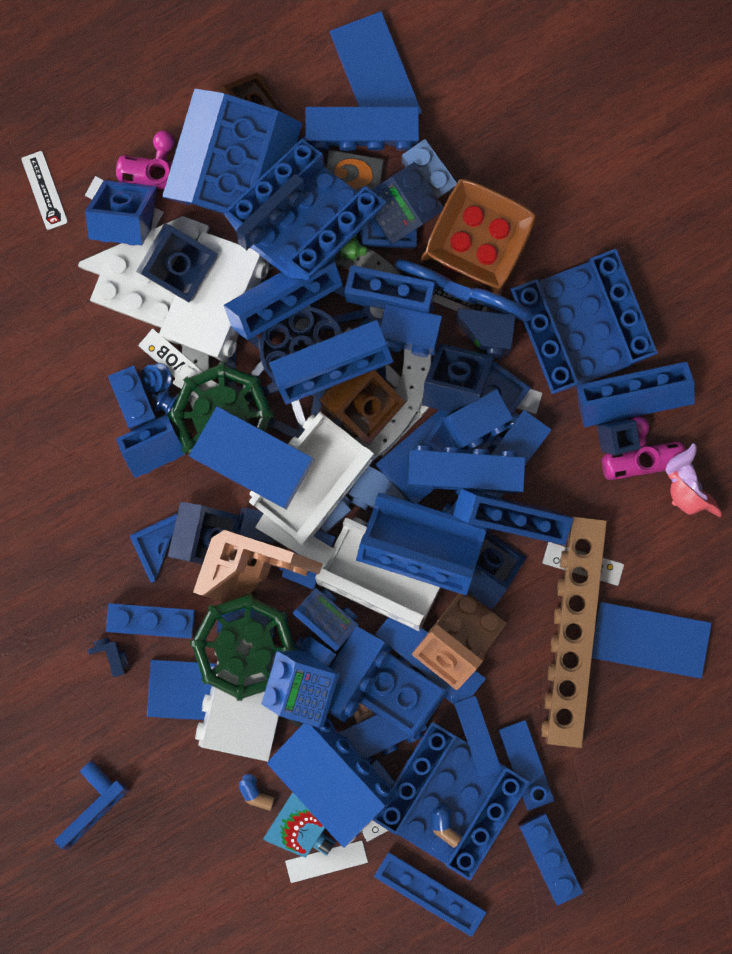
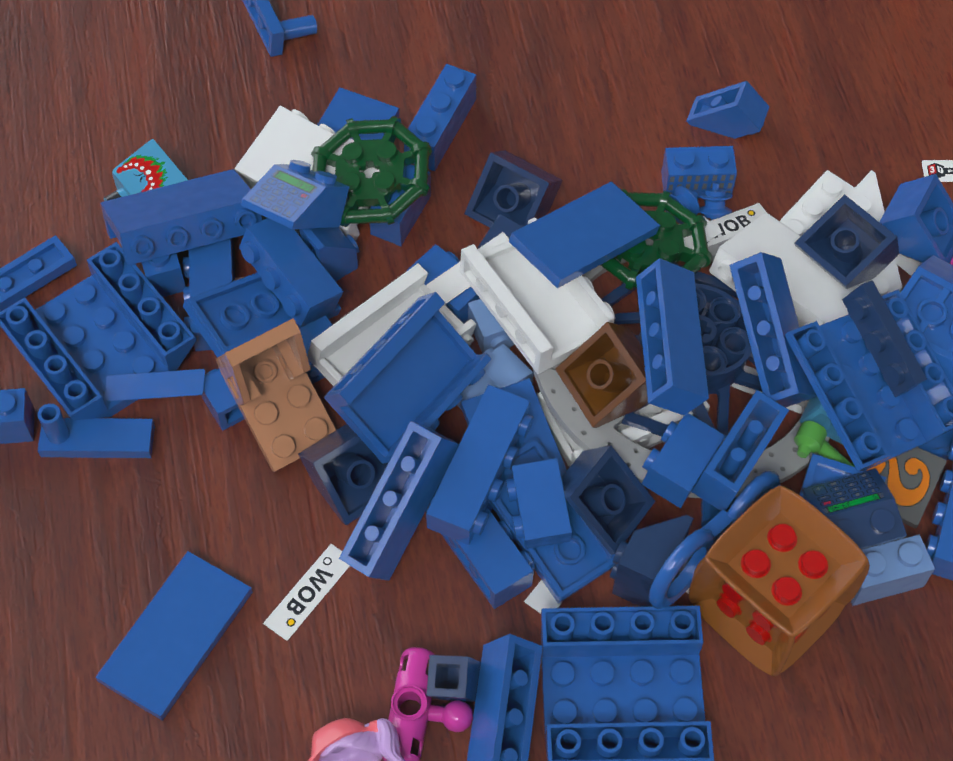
camera: 110 degrees right, 25 degrees down
(61, 393) = (730, 111): none -> blue slope
(117, 660) = (417, 75): dark blue bracket -> none
(150, 446) = (637, 163): blue brick -> none
(153, 545) = (526, 145): blue tile -> none
(228, 568) = (462, 205): nougat bracket -> none
(251, 793) = (204, 157): arm -> none
(319, 864) = (93, 227): white sticker -> none
(326, 618) = (363, 265): blue slope -> none
(441, 826) = (71, 313): arm -> none
(572, 733) = (340, 609): medium nougat brick -> none

